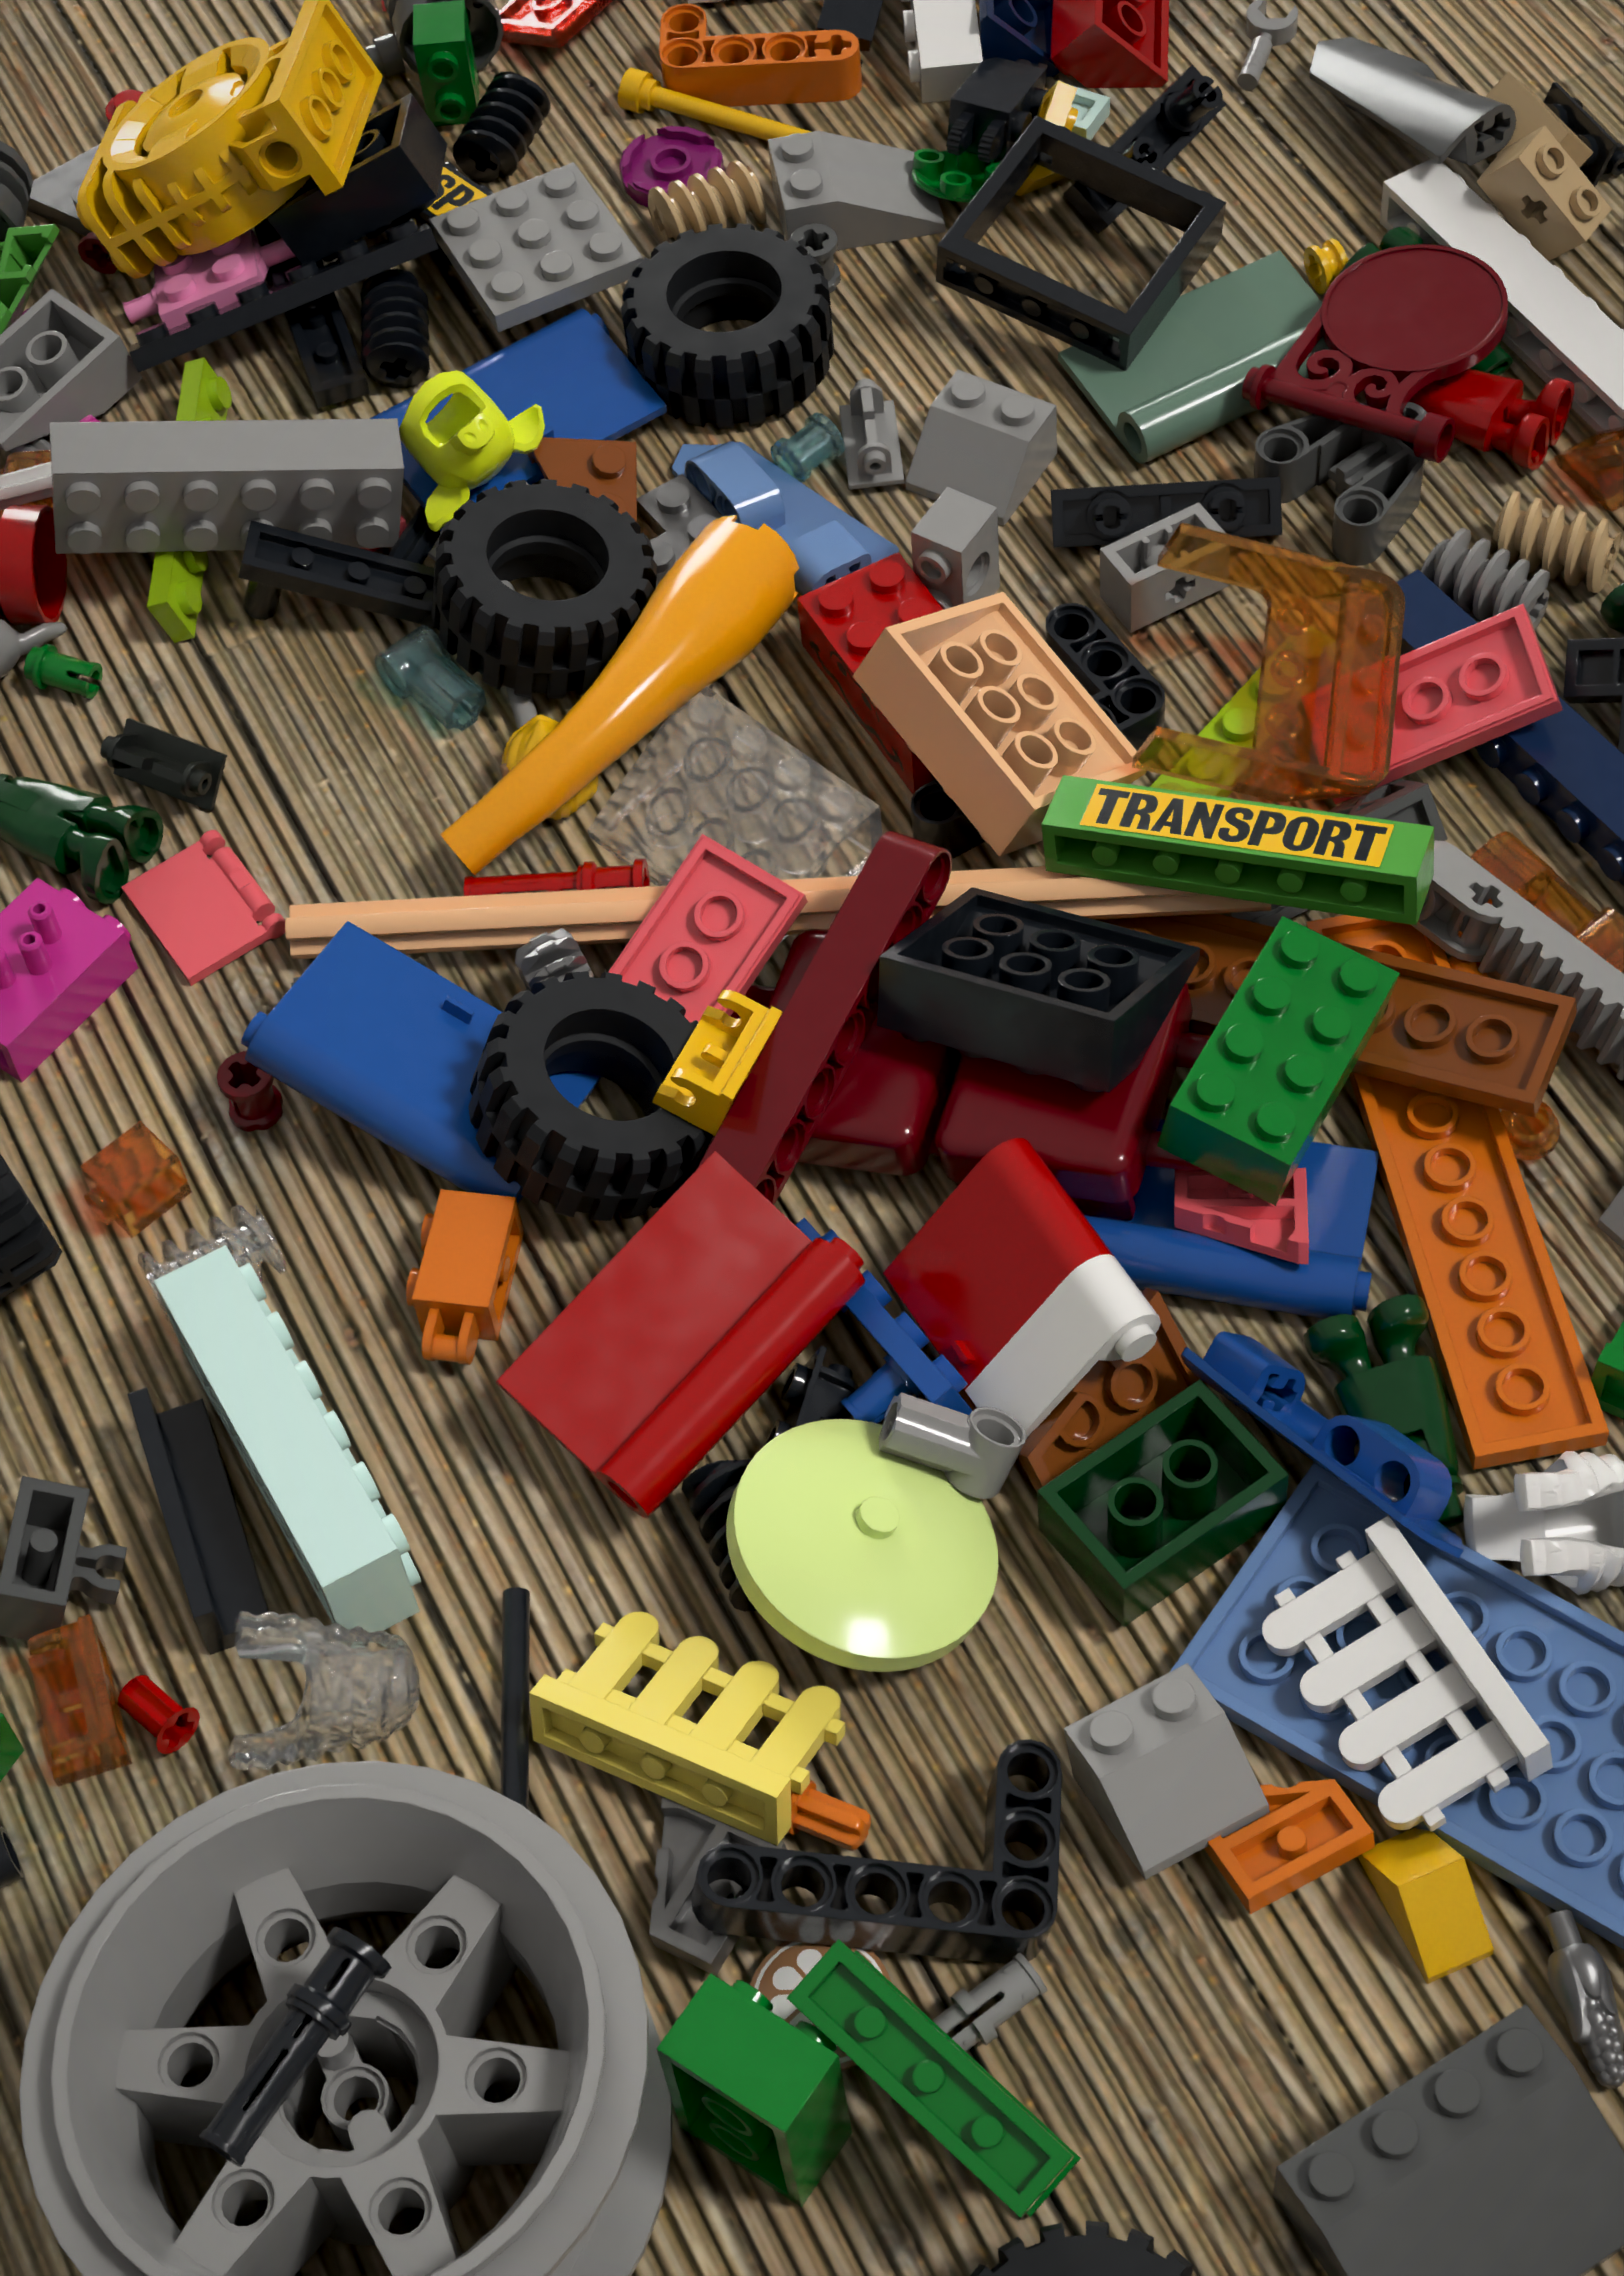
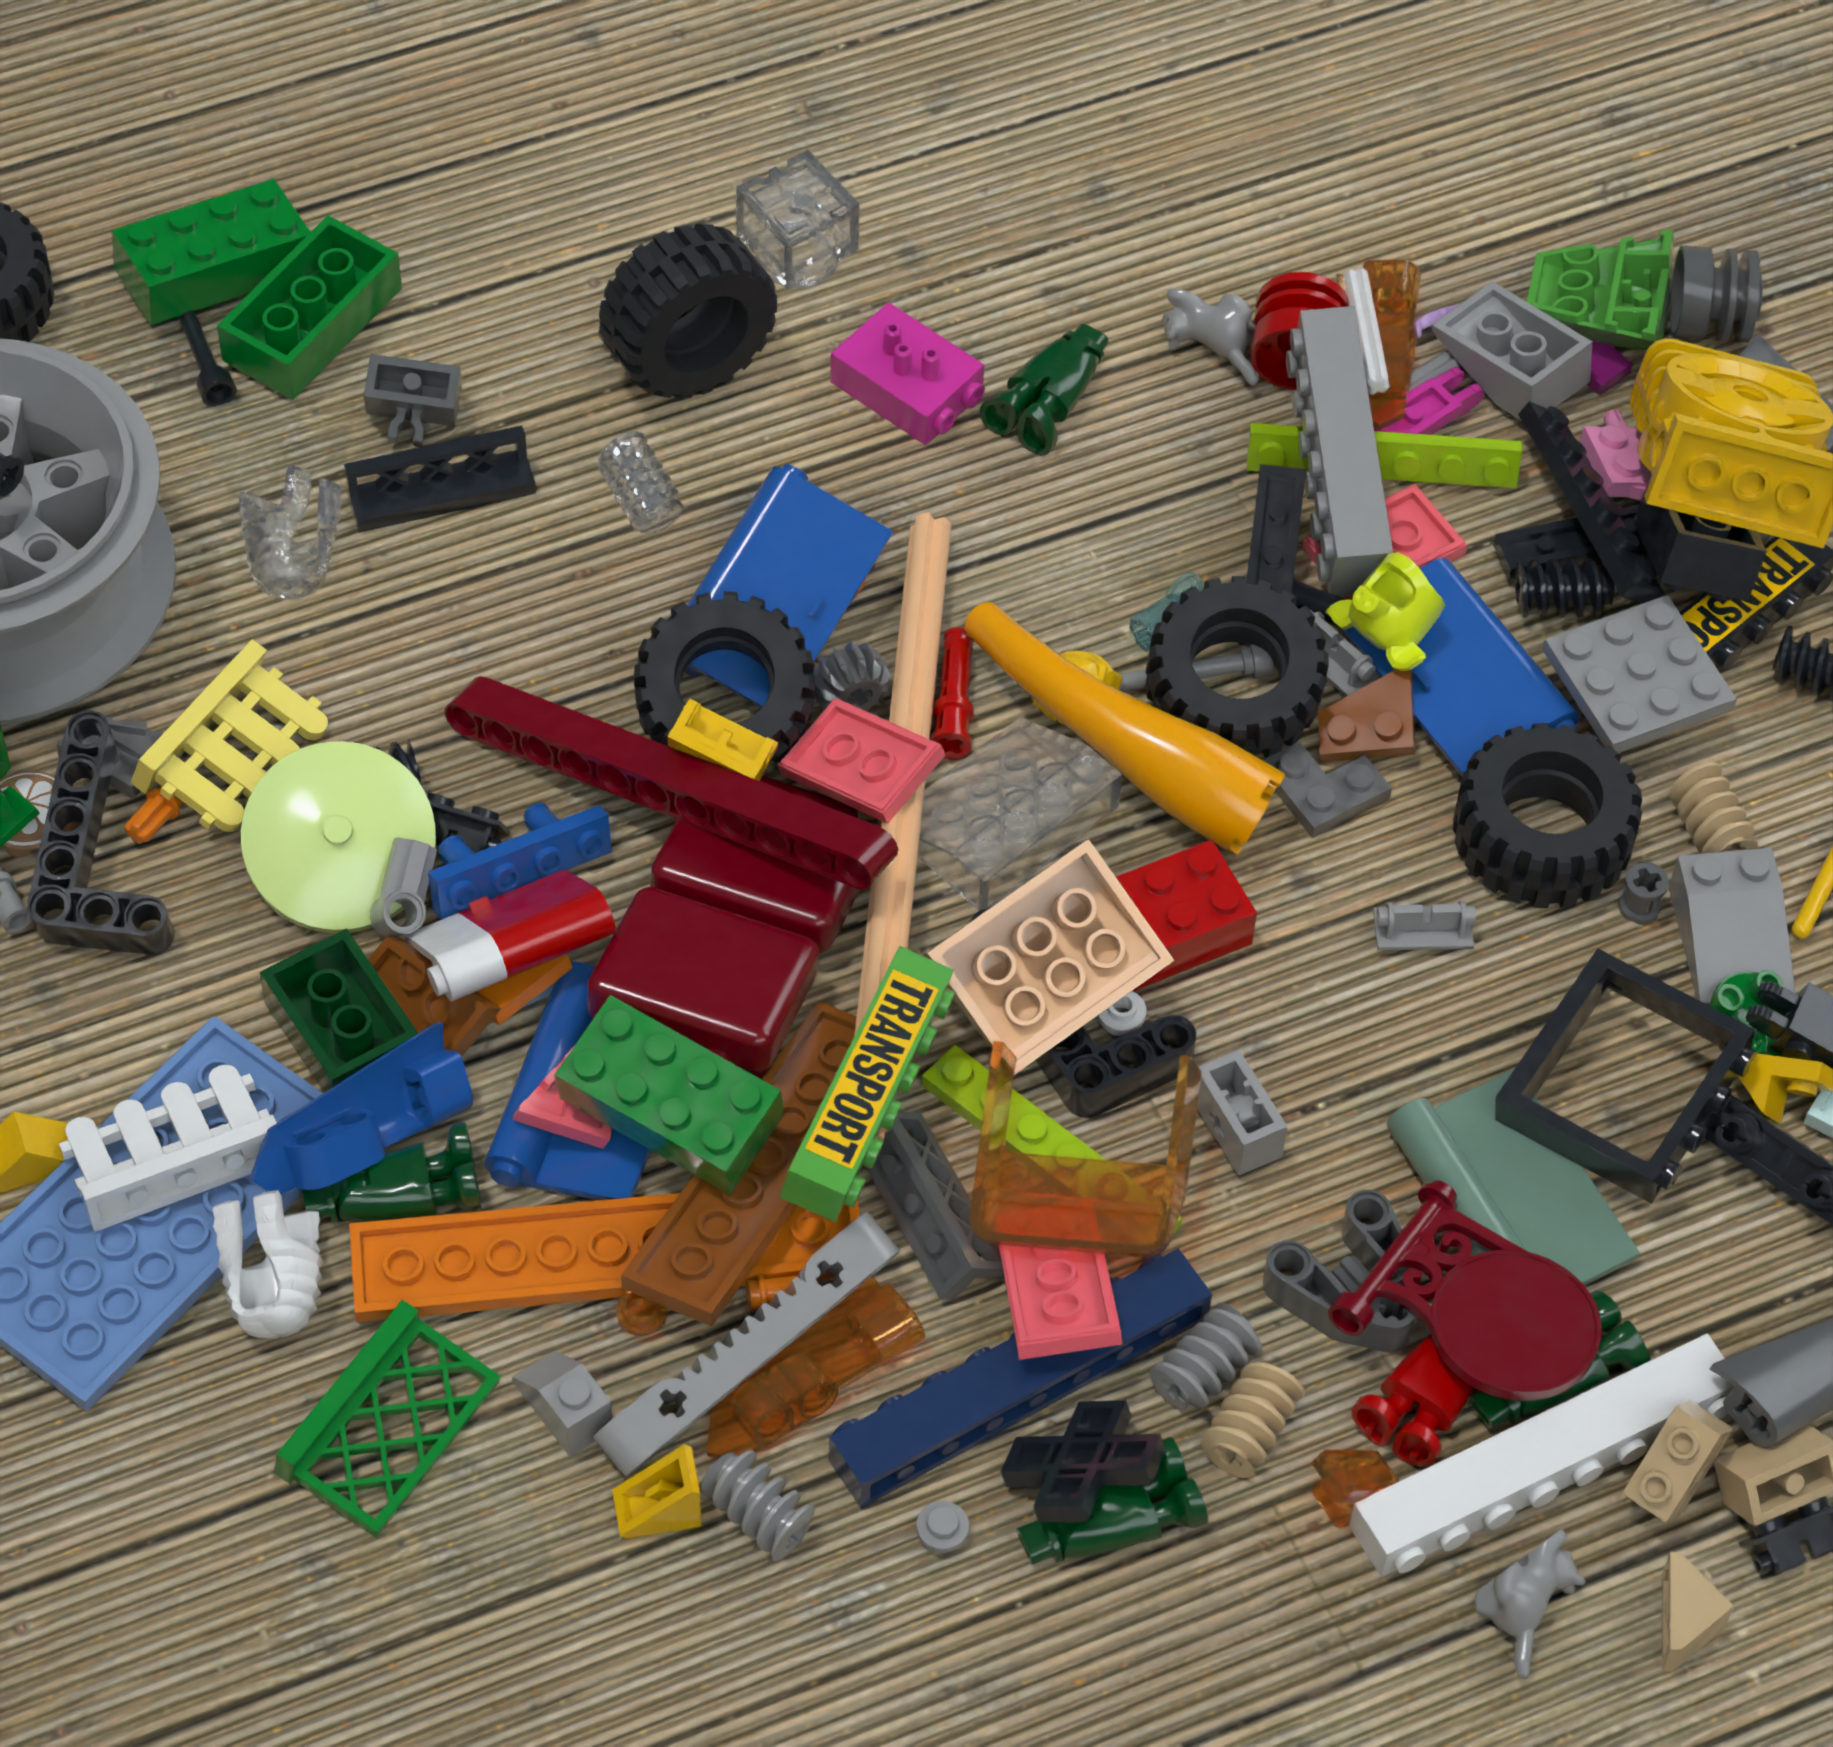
camera: 85 degrees right, 0 degrees up
(61, 671) = (1213, 376): green pin -> none
(78, 1701) = (317, 428): clear orange hinge -> none
(134, 1180) = (719, 439): clear orange brick -> none
(158, 1713) = (310, 457): red piece -> none
(166, 763) = (1094, 458): pearl dark grey hinge -> none
(204, 907) = (973, 479): coral piece -> none
(291, 1443) = (472, 515): light aqua brick -> none
(464, 1272) = (601, 624): orange brick -> none
(515, 1695) = (274, 656): black bar -> none
(666, 157) = (1784, 800): magenta tile -> none
(681, 1334) = (507, 727): red door -> none
(759, 492) = (1340, 857): medium blue panel -> none
(808, 447) = (1413, 876): clear light blue bush -> none
(957, 549) = (1251, 956): light grey brick -> none
(984, 443) = (1402, 1002): light grey slope -> none
(1033, 988) = (758, 939): black slope -> none
(1112, 512) = (1316, 1141): black plate -> none
(1165, 1770) = (137, 1002): light grey slope -> none
(1301, 1839) = (85, 1068): orange wing -> none
(1324, 264) = (1622, 1288): yellow bush -> none

